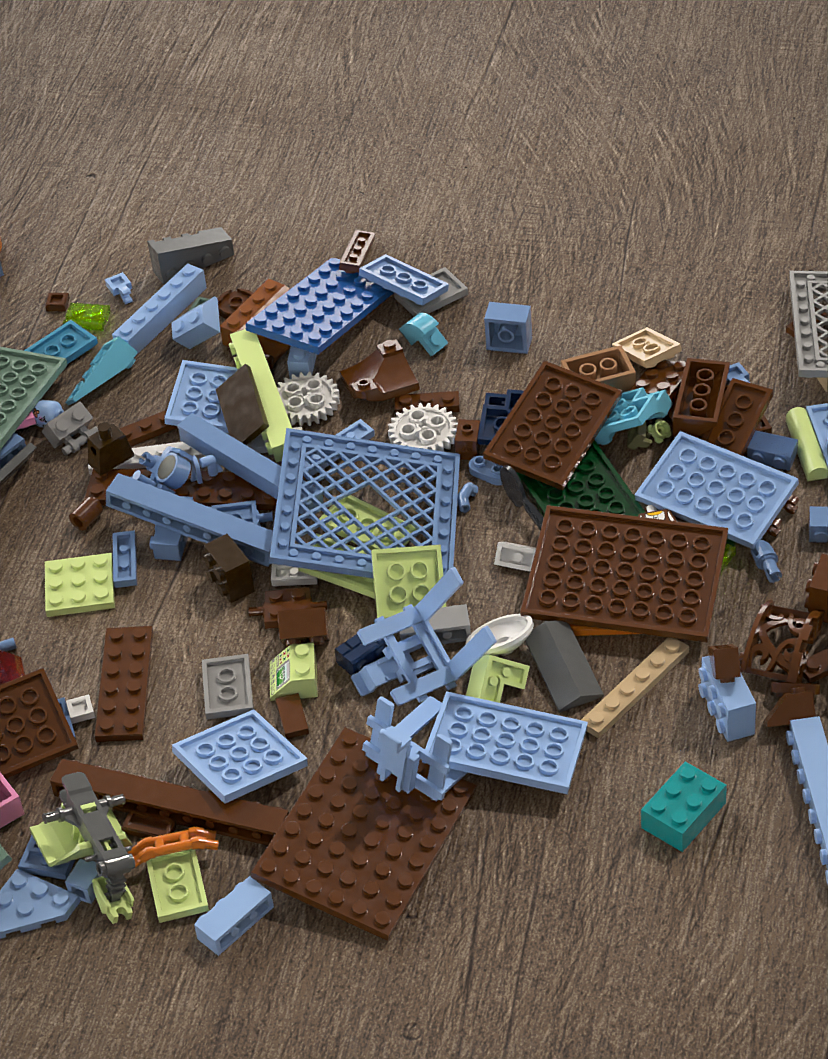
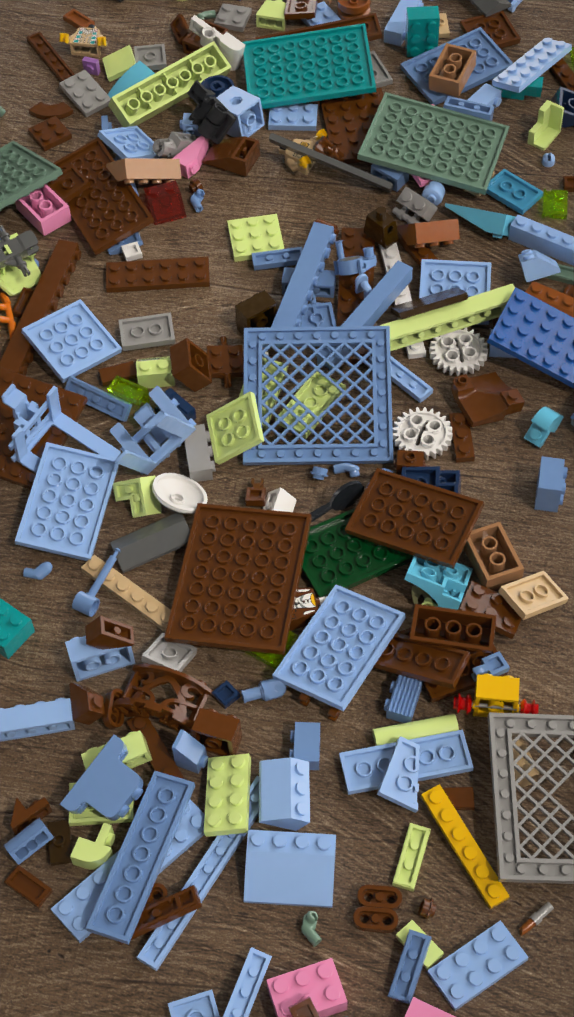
camera: 85 degrees right, 10 degrees up
(12, 318) = (545, 162): none -> light blue hinge
(120, 407) = (430, 232): none -> dark orange slope
(334, 692) = (129, 391): none -> clear neon green panel
(347, 715) = (100, 399): none -> medium blue plate
(471, 517) = (319, 472): none -> medium blue plate
(499, 573) = (256, 494): none -> reddish brown plate
(605, 777) = (39, 572): none -> medium blue arm
(650, 722) = (87, 602): none -> medium blue piece
(723, 633) = (169, 654): none -> light grey plate
(766, 593) = (225, 694): none -> dark blue tile
(772, 372) = (496, 696): none -> yellow brick

